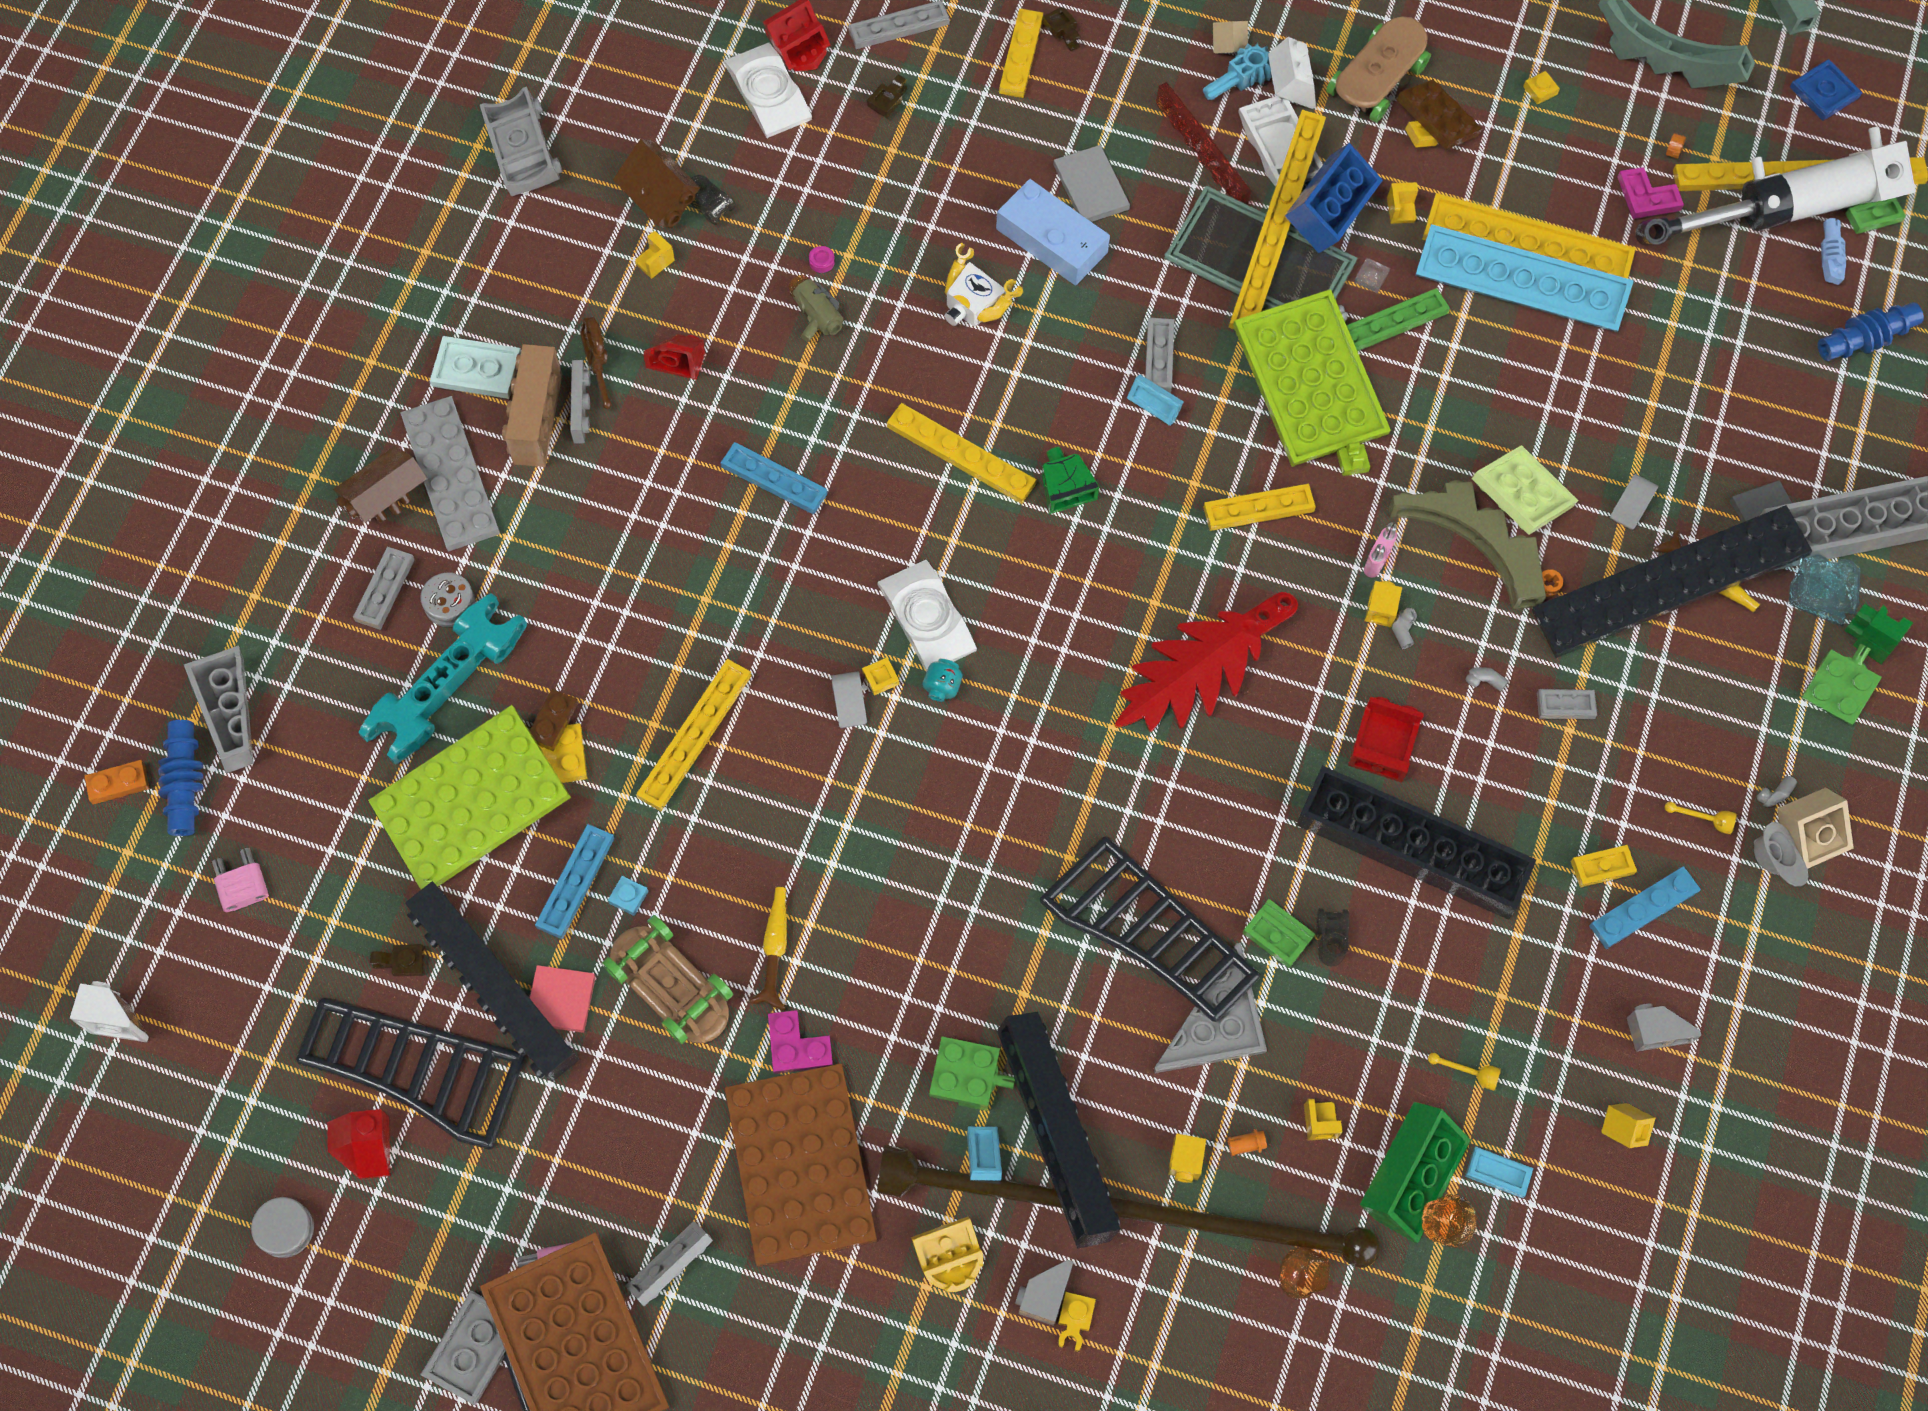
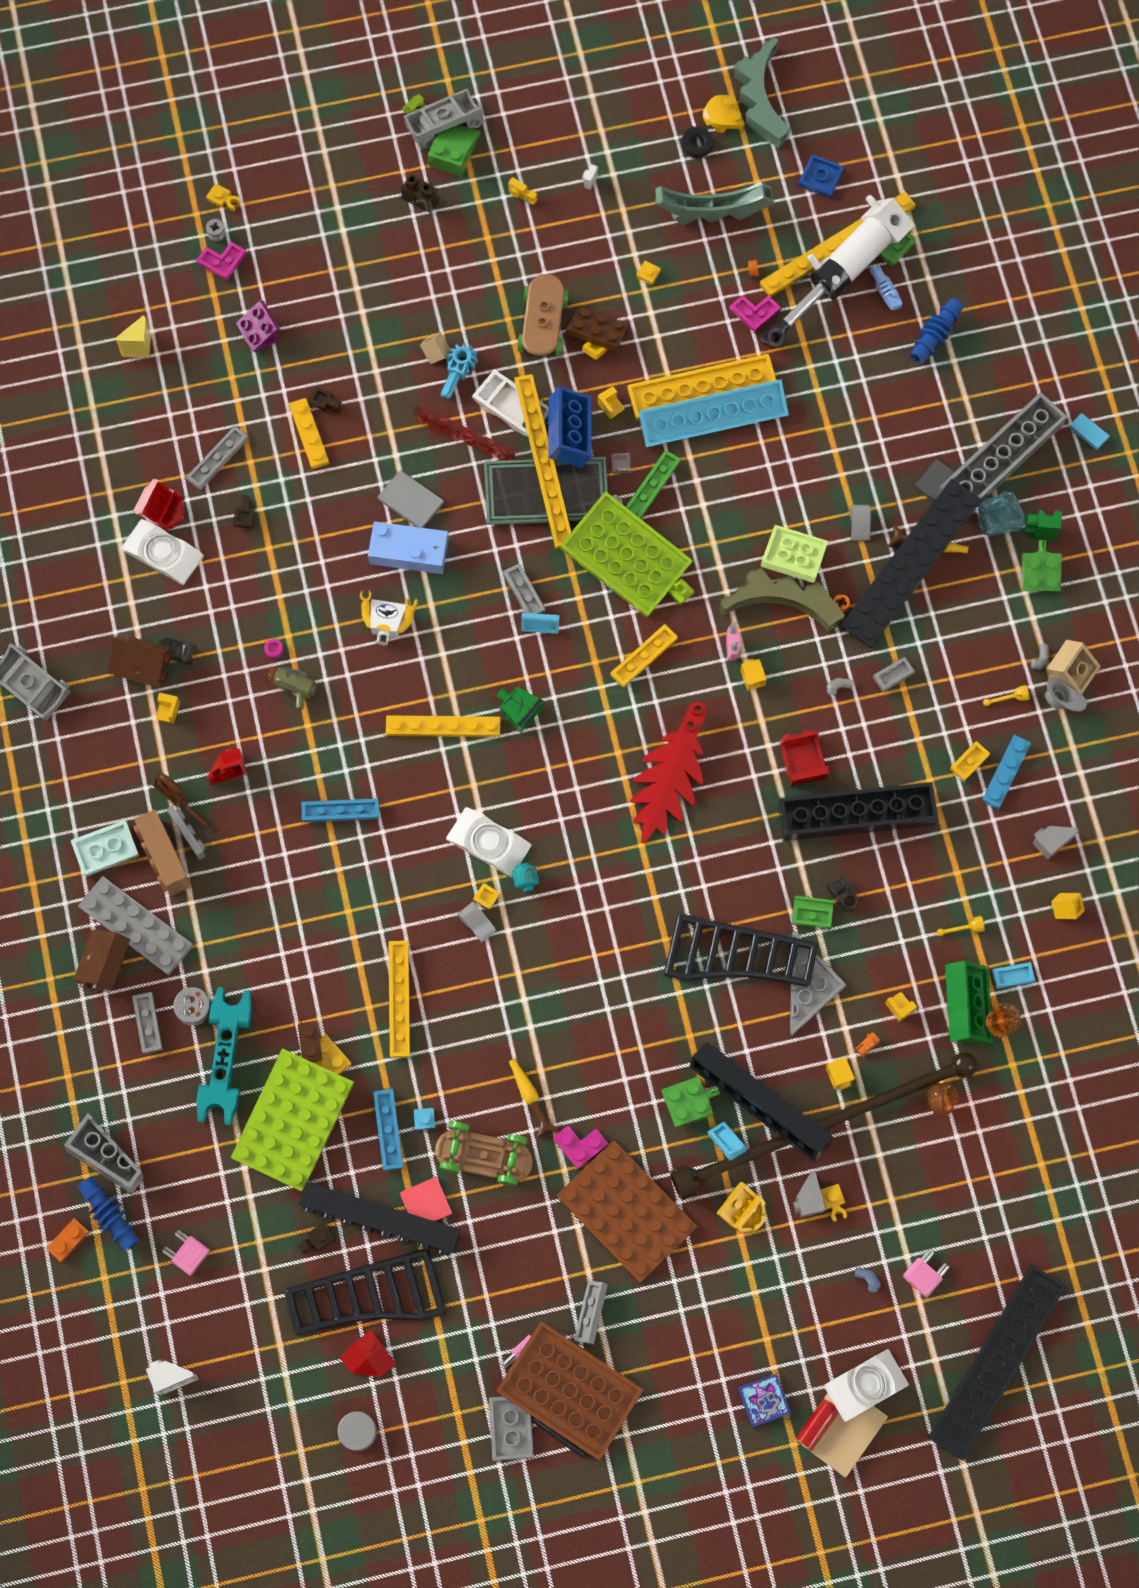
camera: 30 degrees left, 5 degrees up
(1292, 72) = (491, 353): white slope -> none
(1402, 625) = (771, 681): light grey arm -> none

